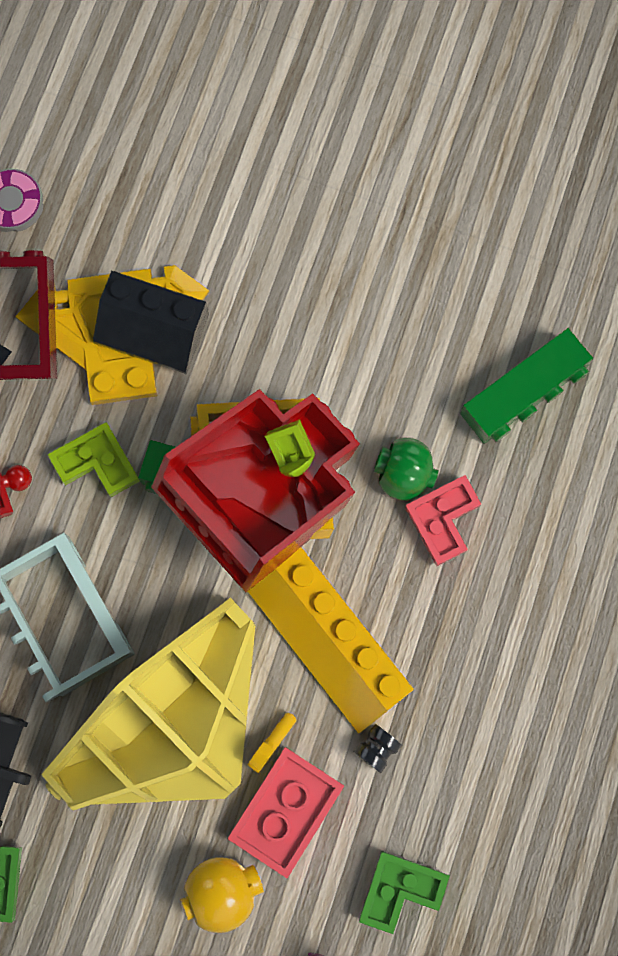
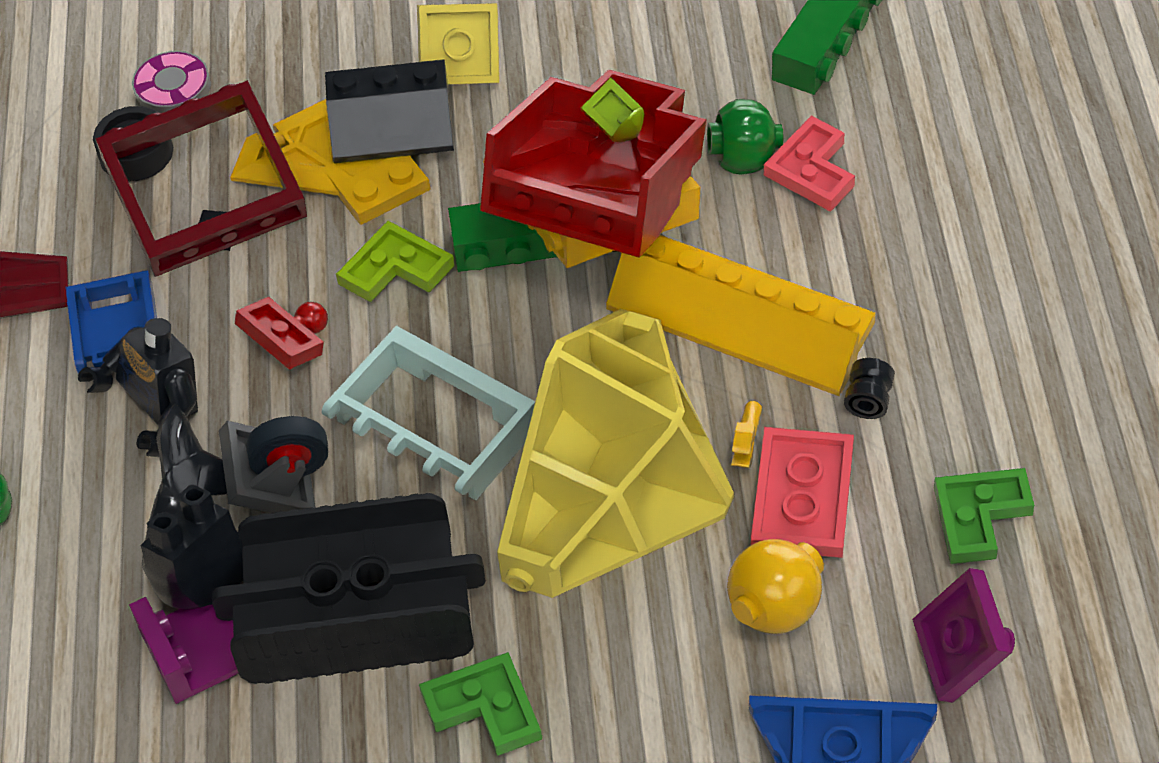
camera: 20 degrees left, 25 degrees down
(231, 279) = (463, 37): none -> light yellow tile

